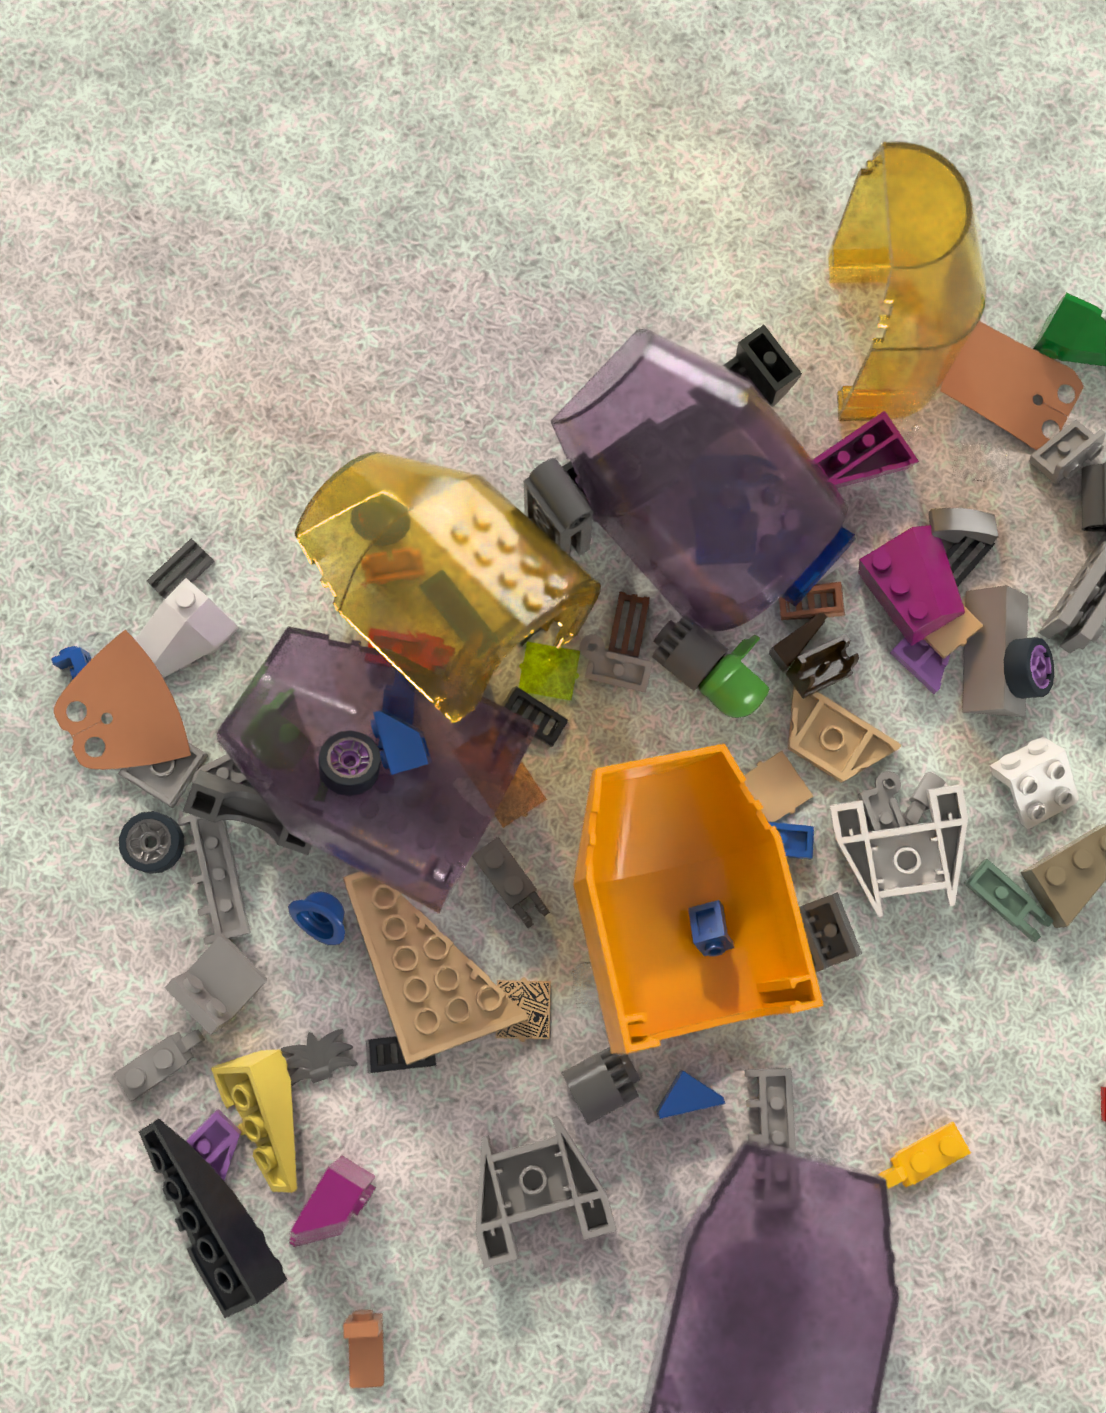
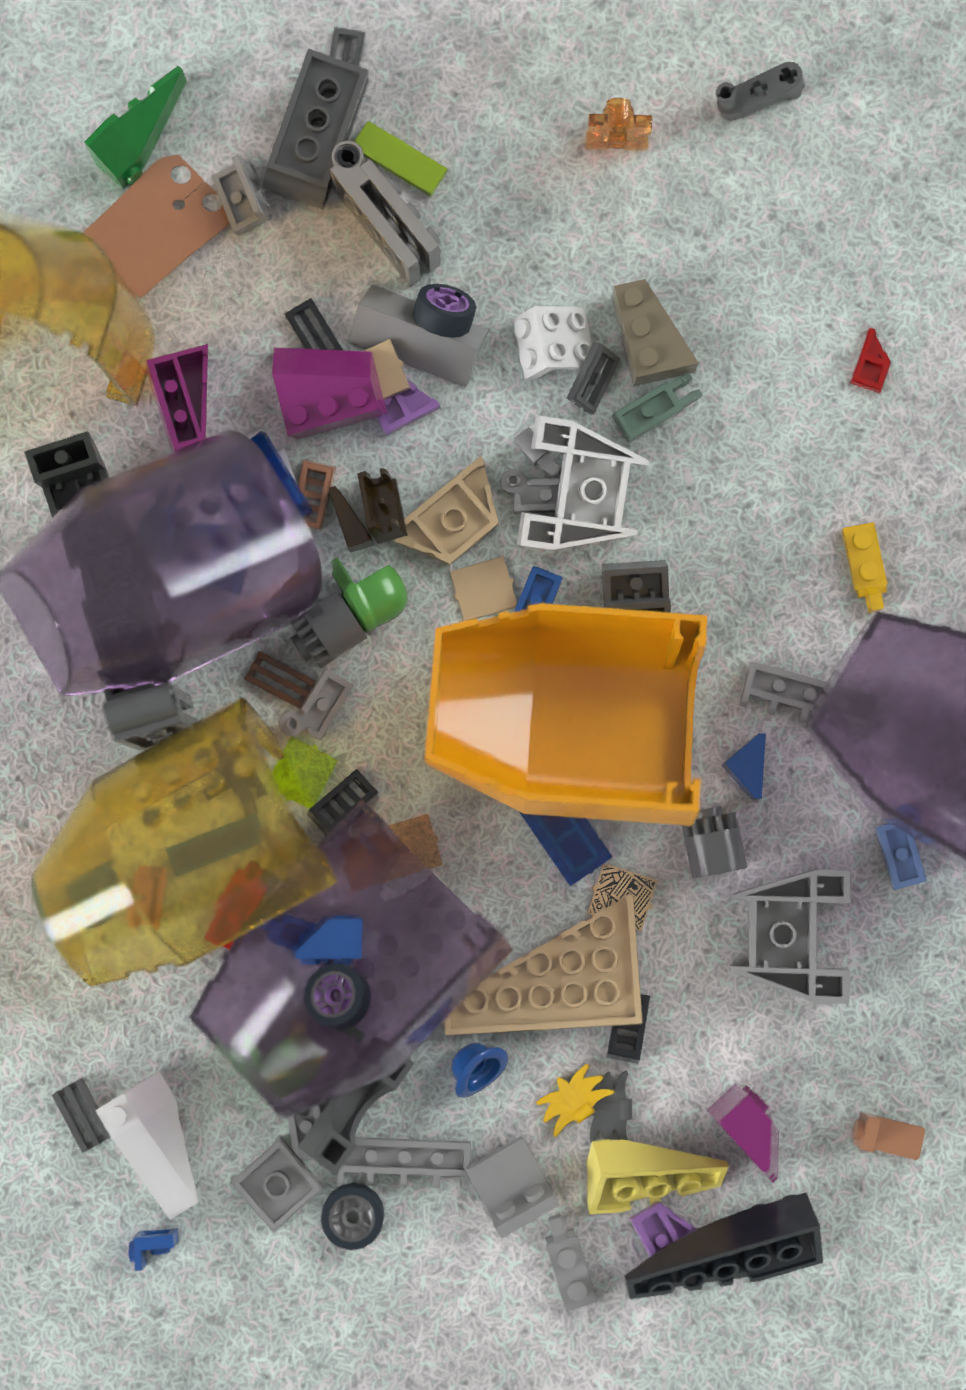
camera: 70 degrees left, 5 degrees up
(144, 713) = (217, 1189): nougat piece -> none
(316, 1020) = (573, 1099): none -> yellow piece
(508, 879) = (495, 873): dark grey hinge -> none
(558, 942) = (570, 844): none -> clear blue piece
(645, 1279) = (900, 857): none -> medium blue hinge
(710, 929) = (601, 696): blue bracket -> none
(956, 523) = (280, 327): slope -> none
(1016, 826) = (590, 375): none -> dark grey tile

